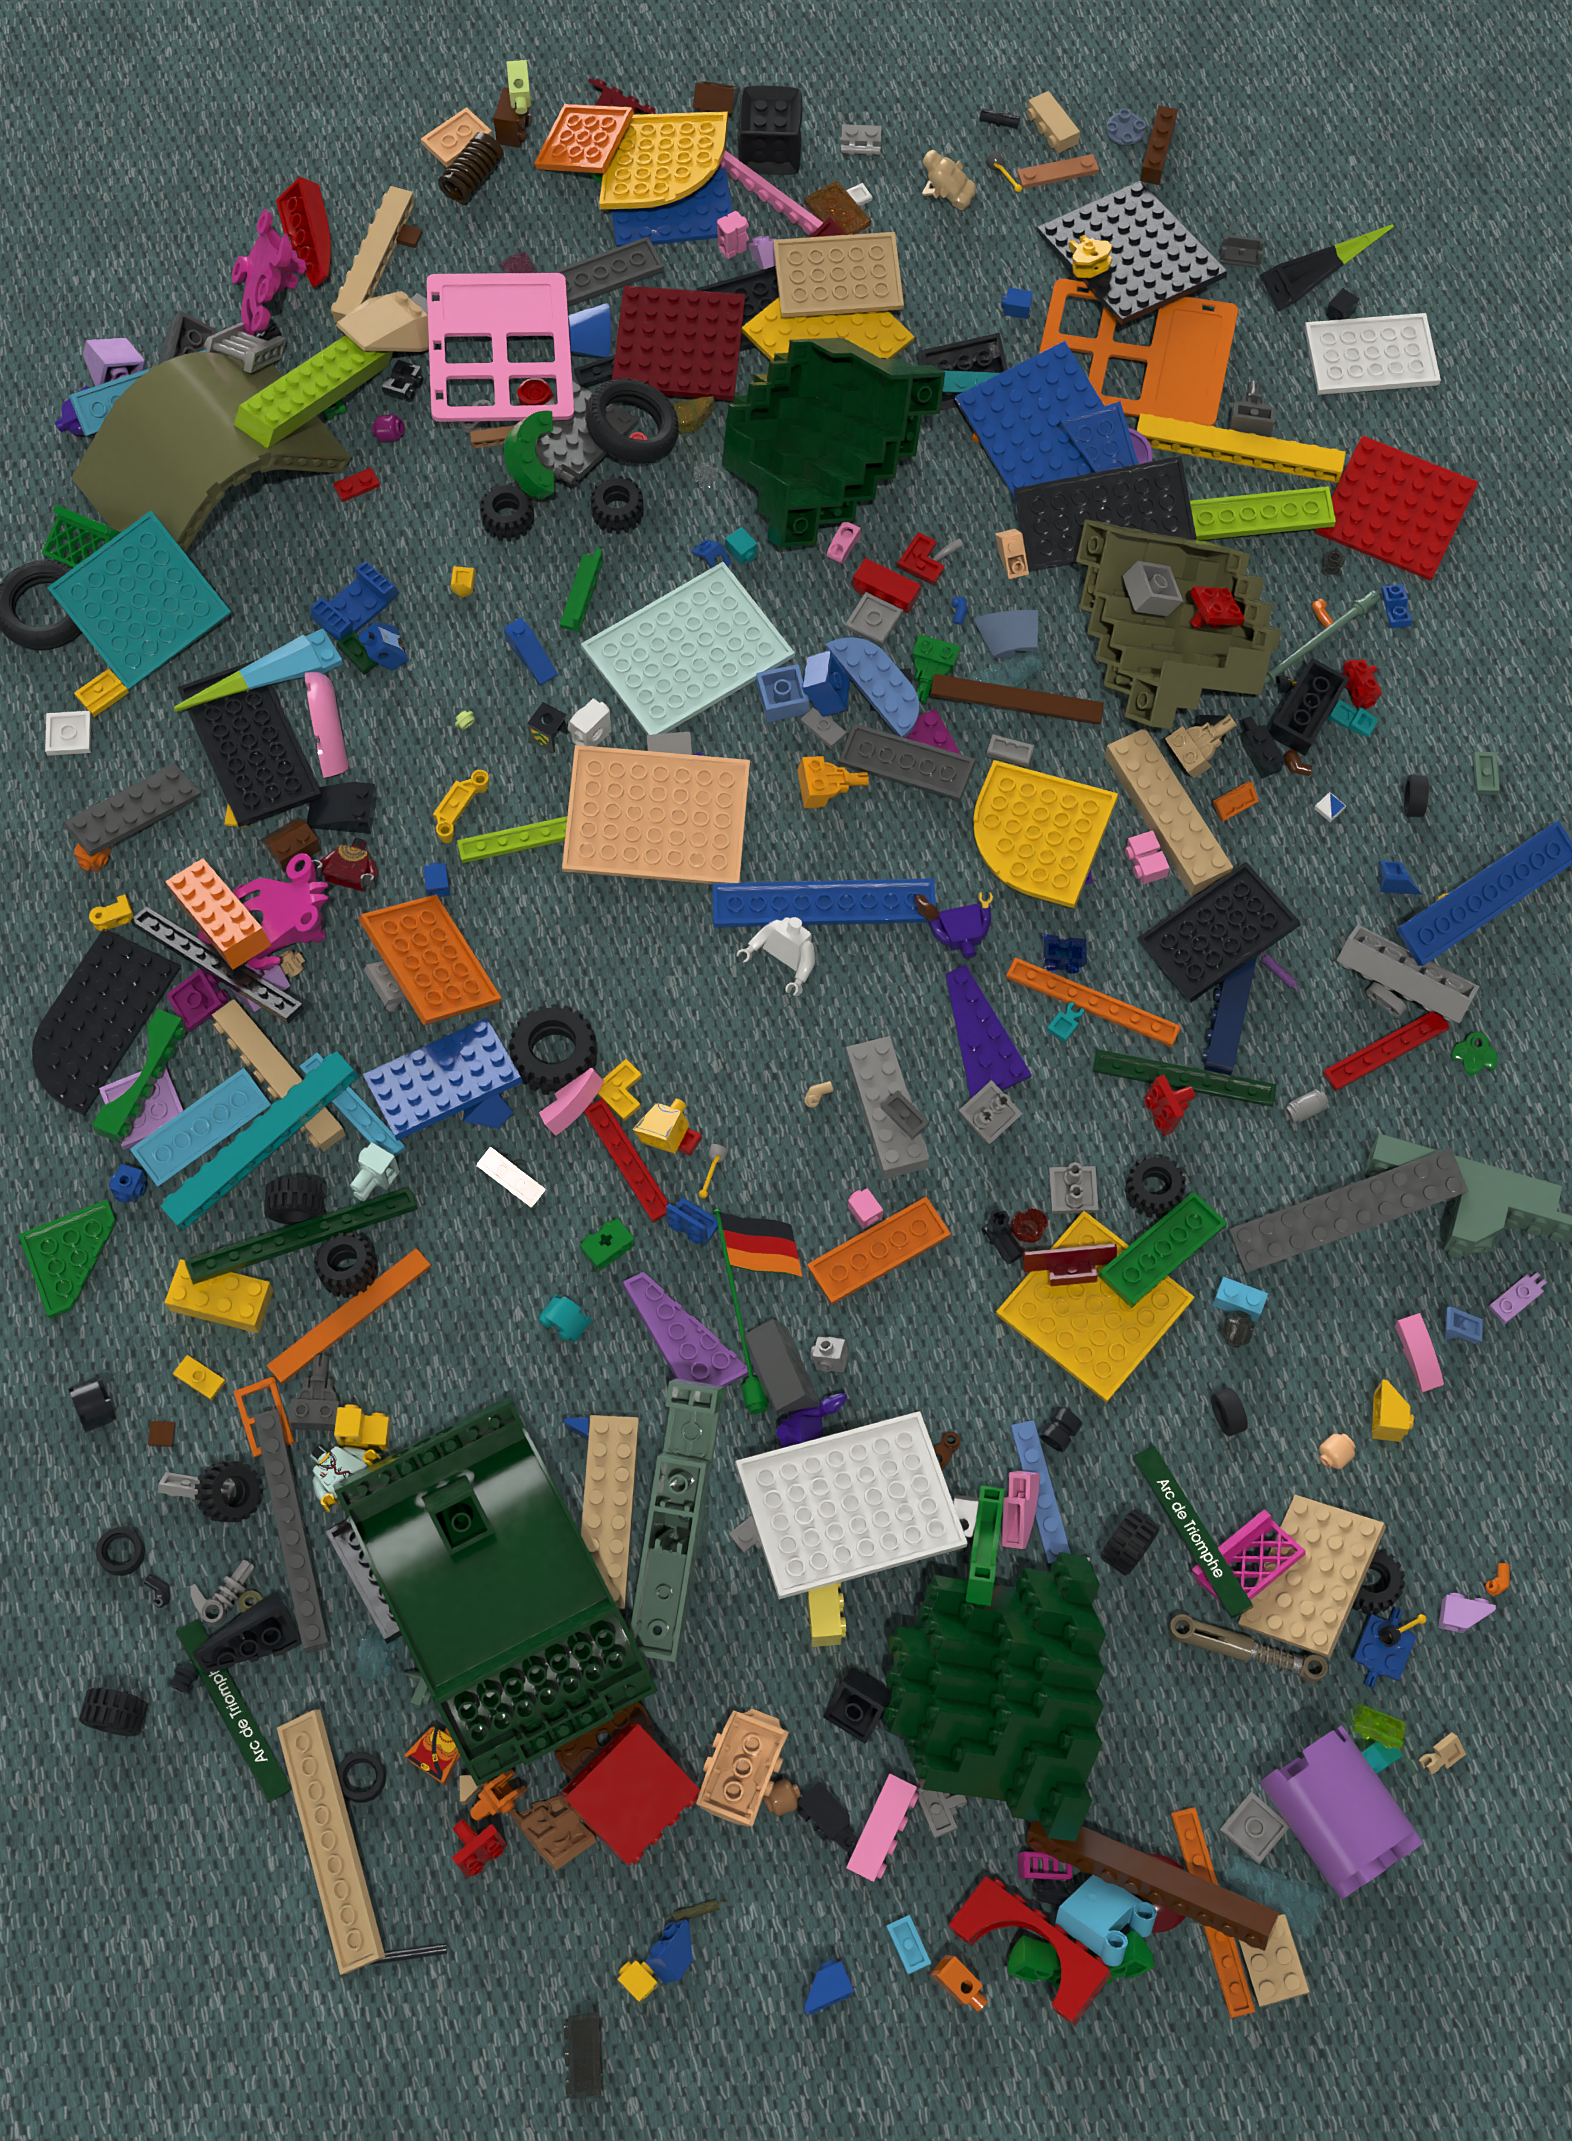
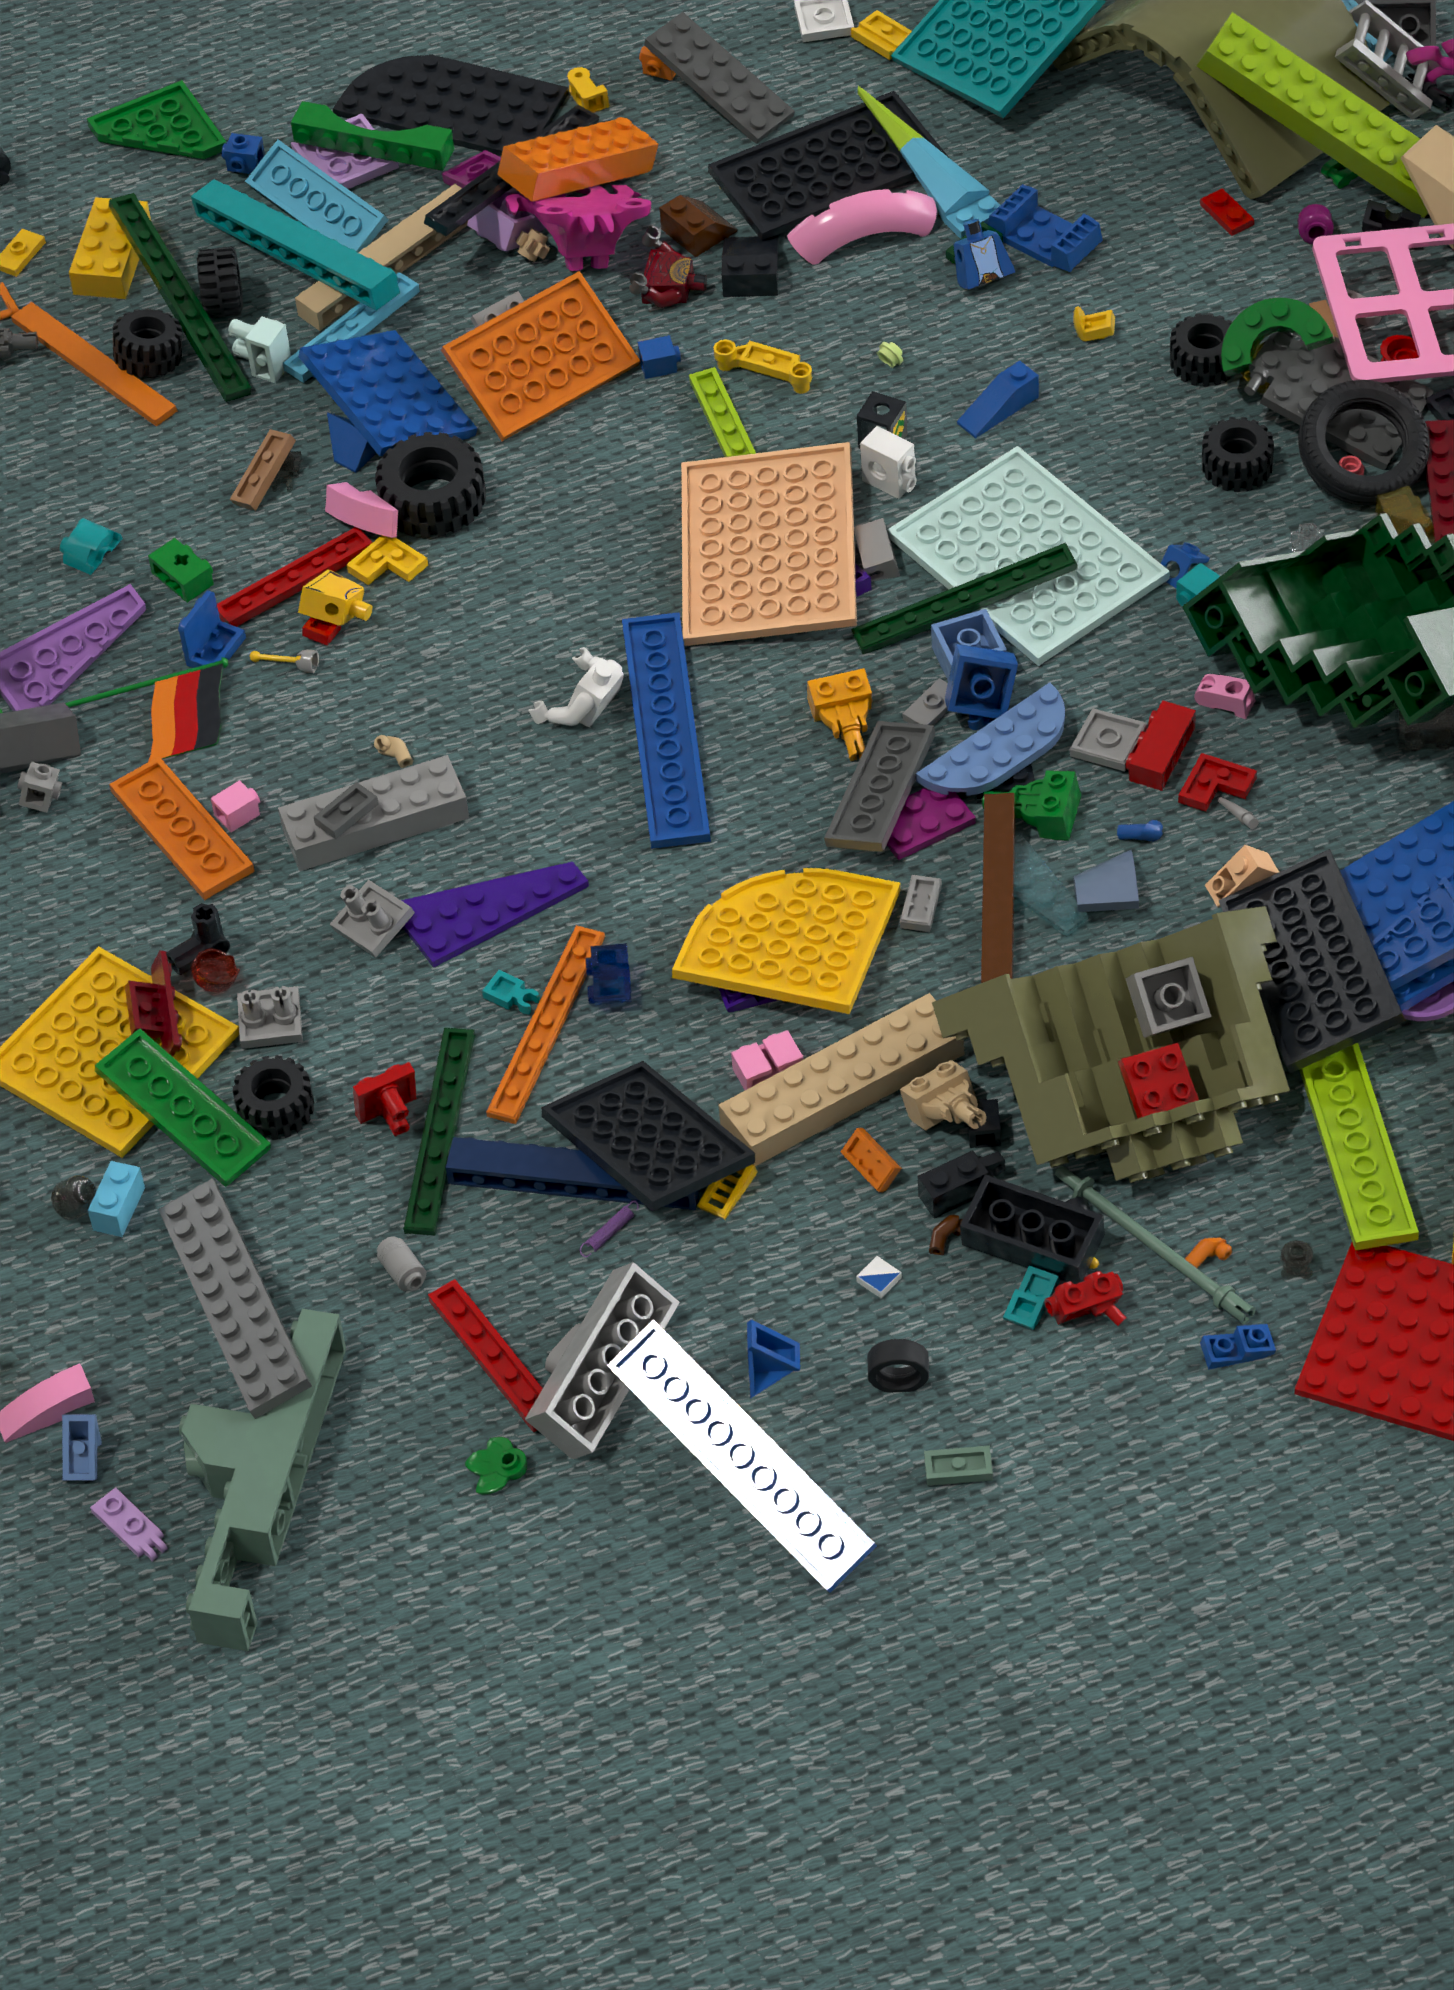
camera: 90 degrees right, 15 degrees down
(582, 591) = (1101, 442): green fence -> none
(732, 689) = (964, 598): none -> dark green tile
(959, 926) = (638, 862): dark purple torso -> none

